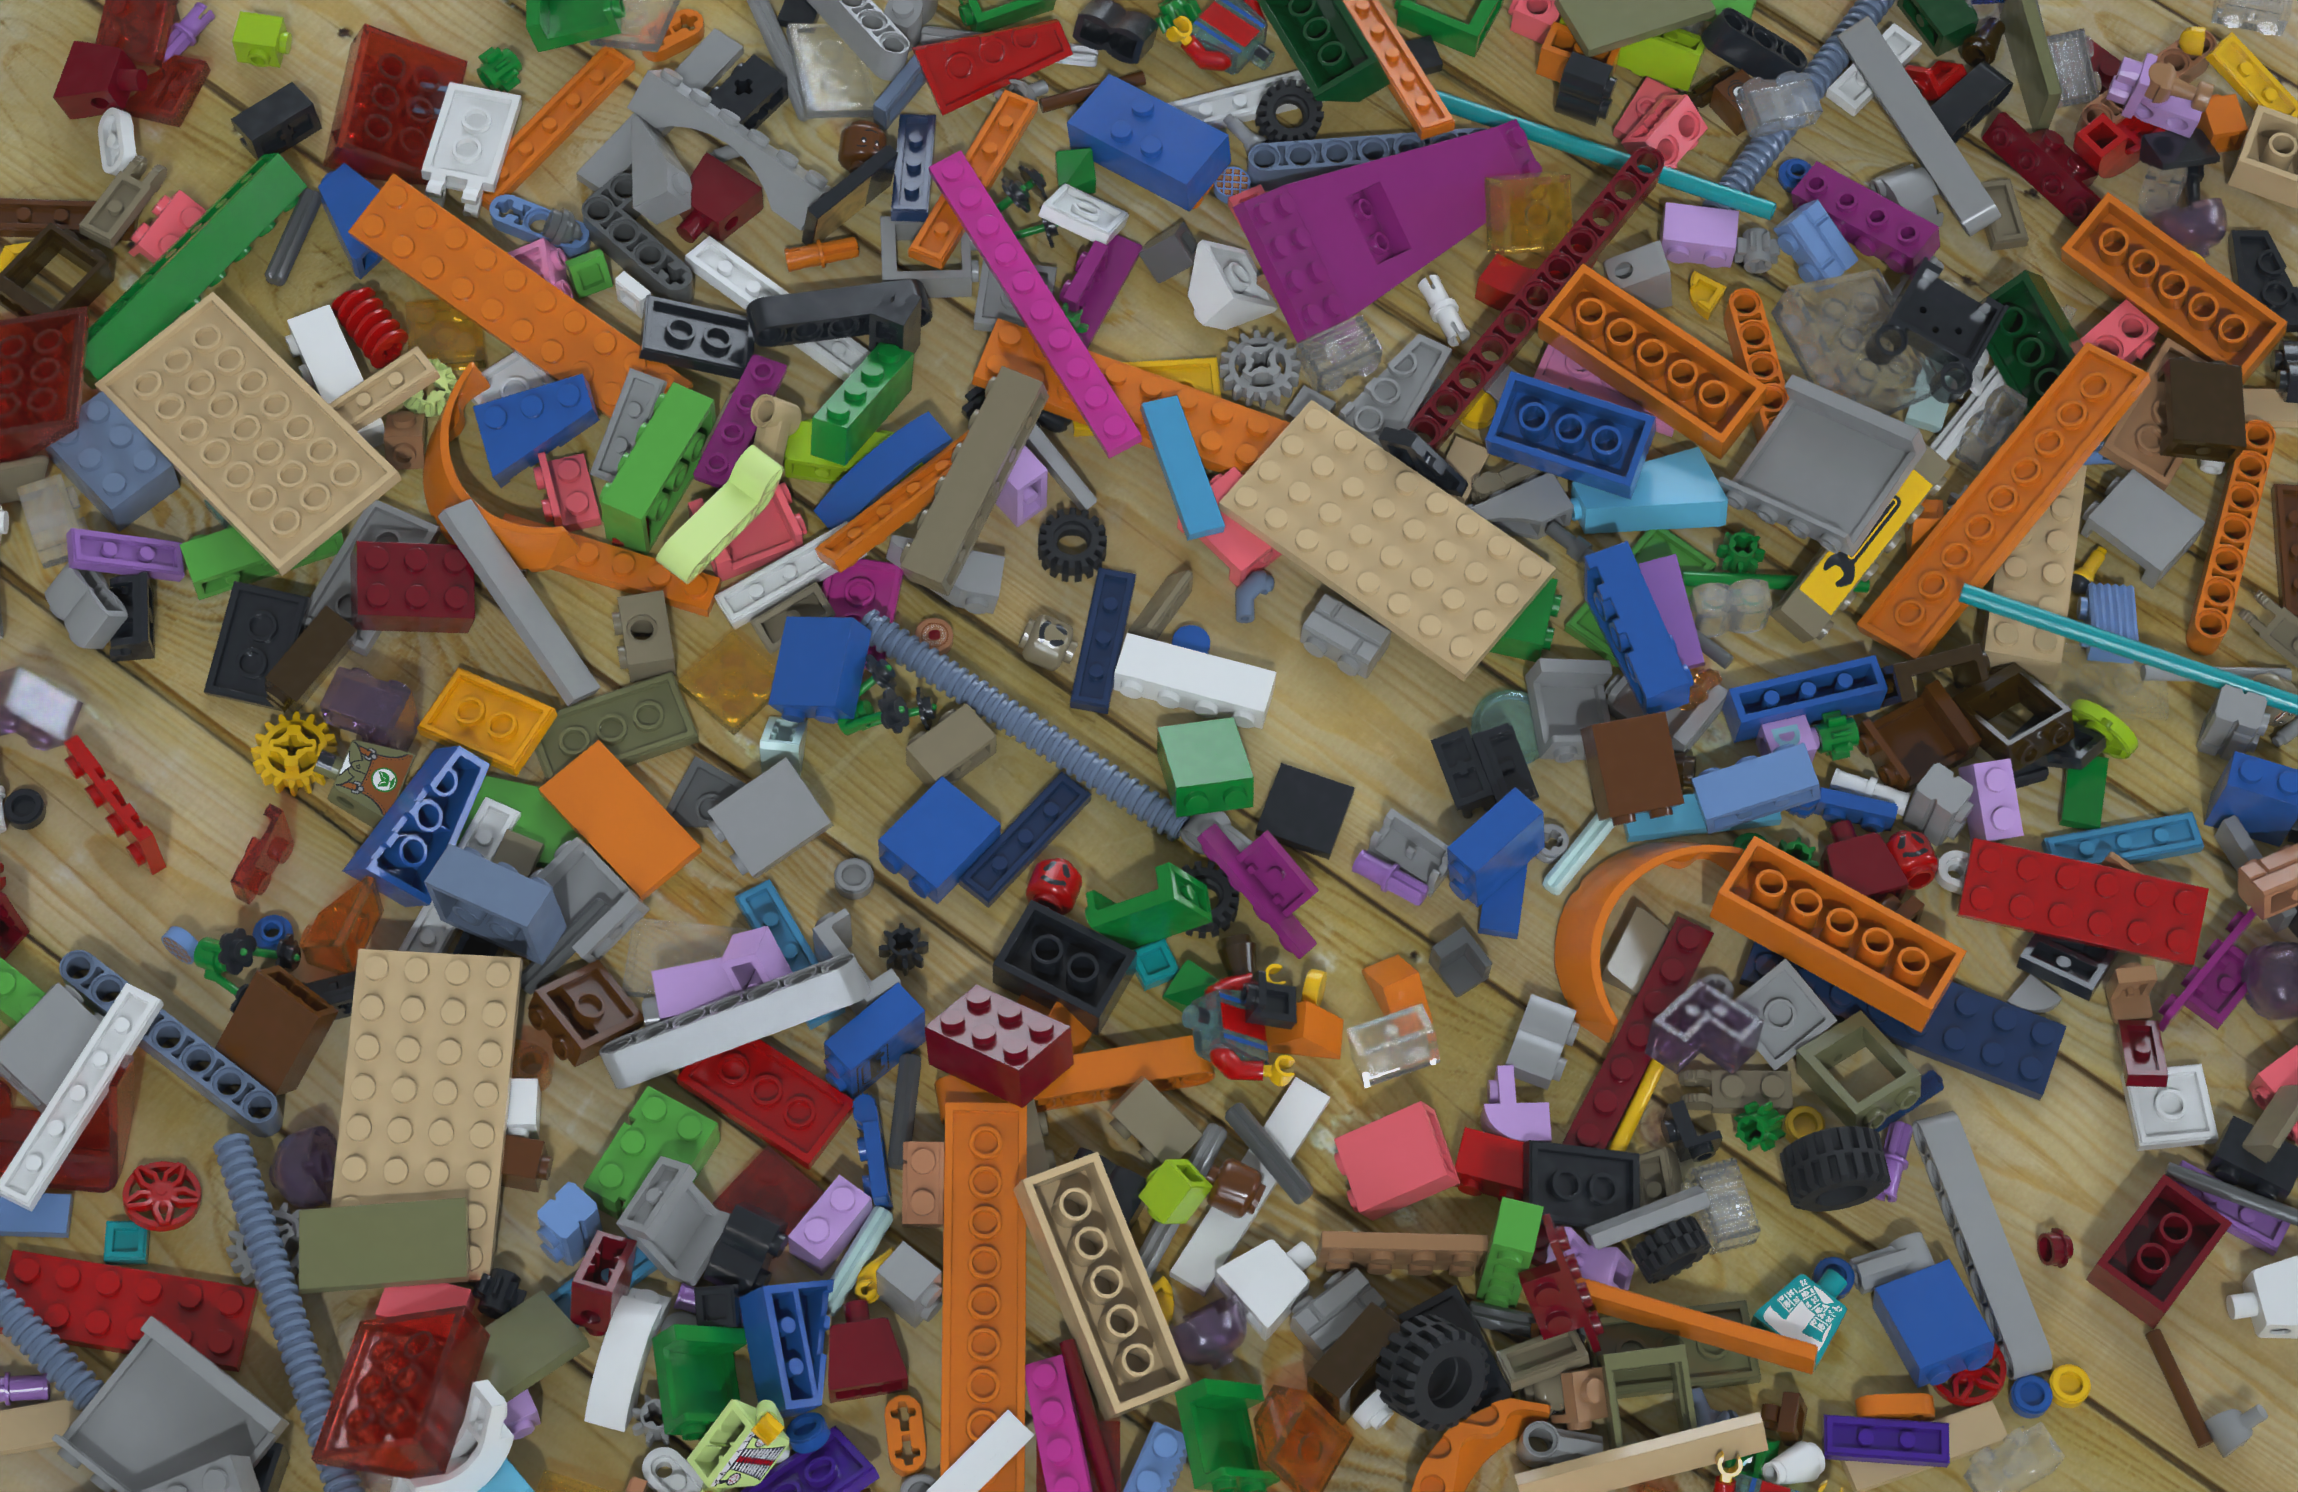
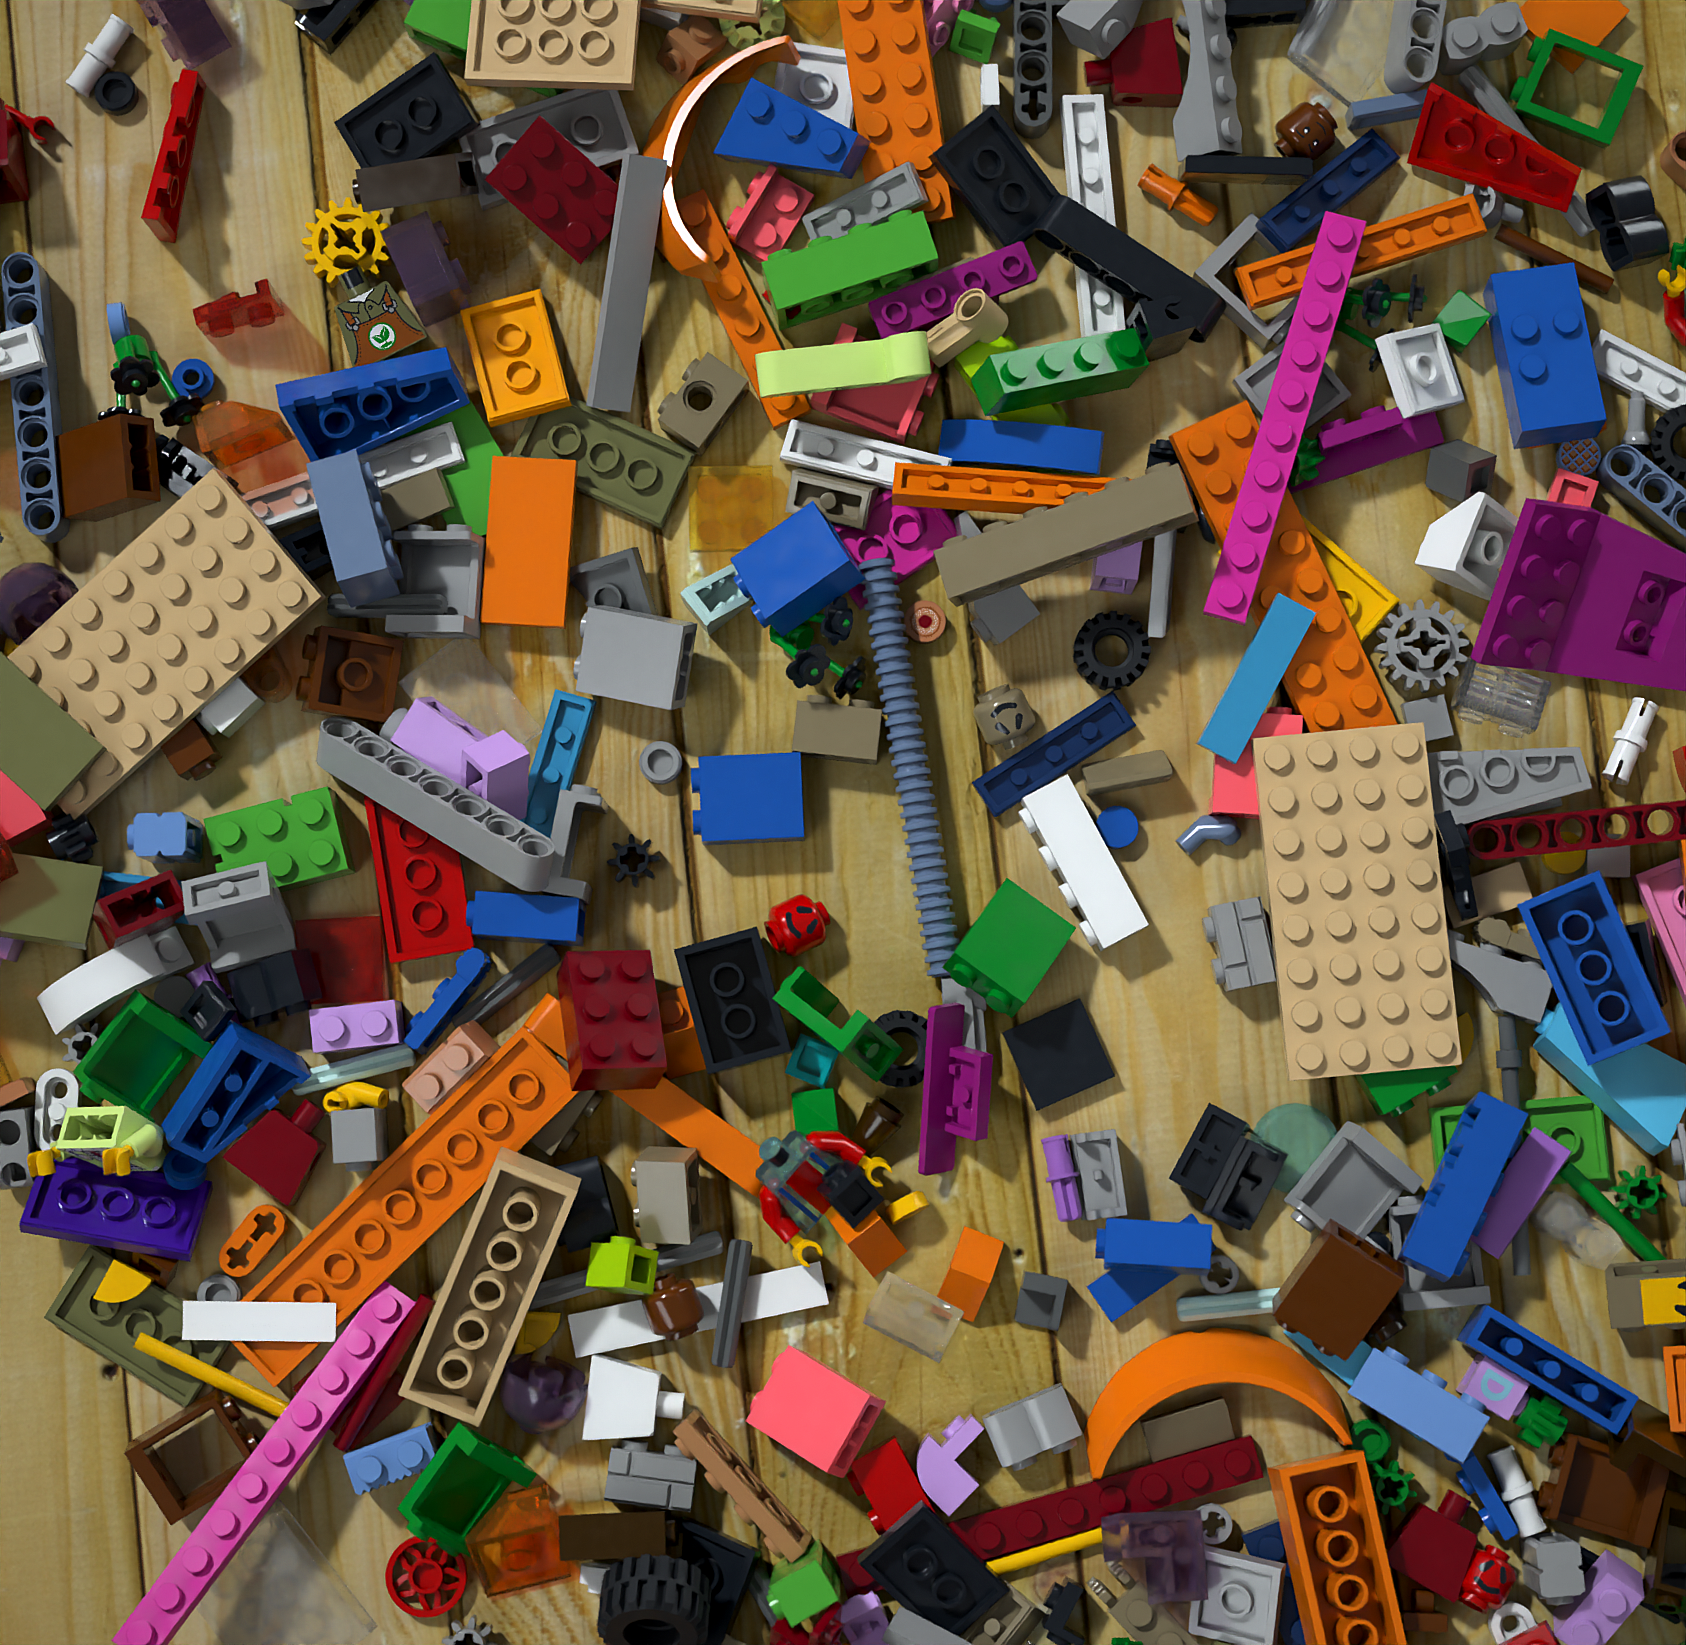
camera: 55 degrees right, 20 degrees up
(1025, 839) = (821, 860): dark blue tile -> none
(1698, 694) = (1473, 1280): clear orange piece -> none

